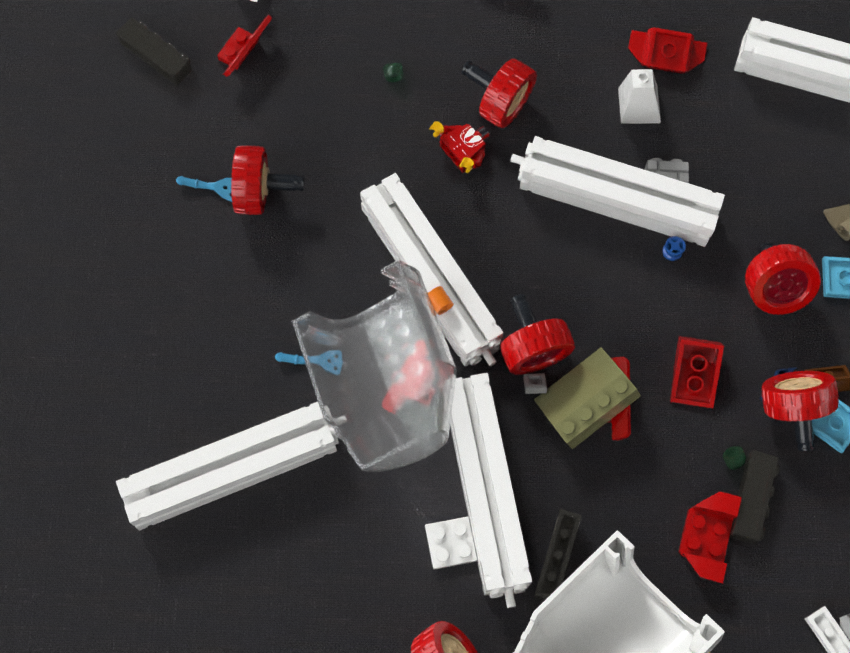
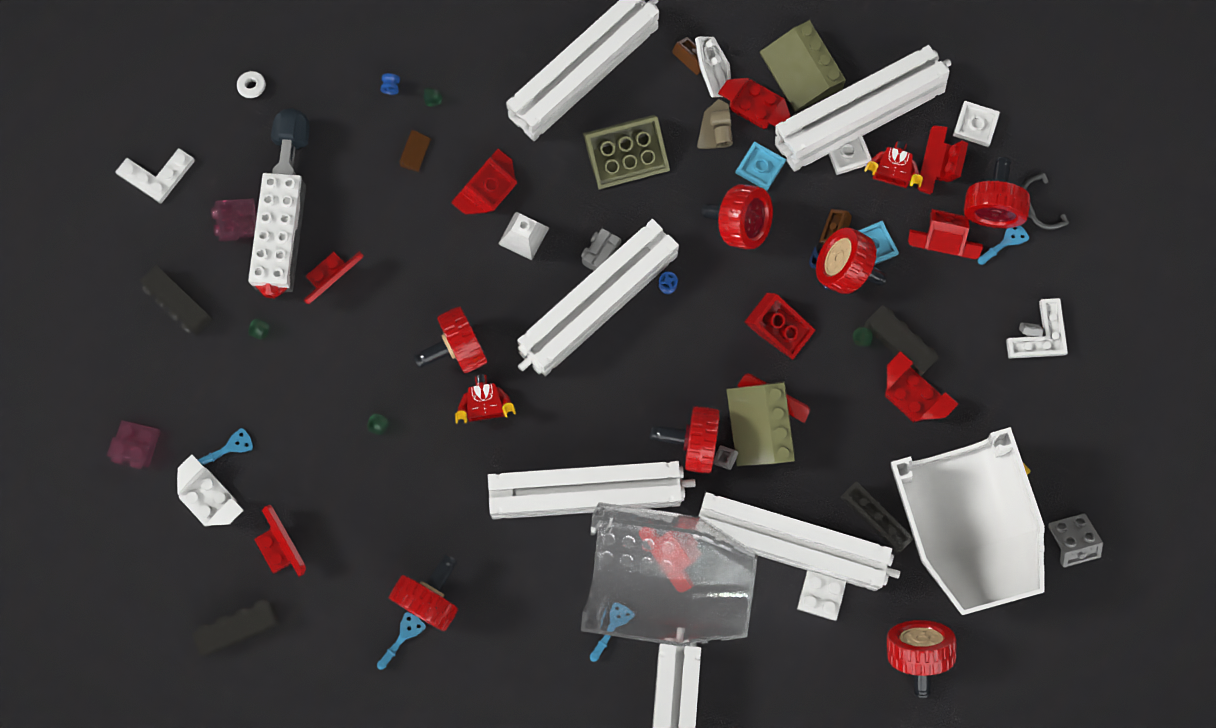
camera: 60 degrees left, 5 degrees up
(440, 300) = (627, 497): orange beam -> none
(777, 149) = (626, 151): none -> olive slope

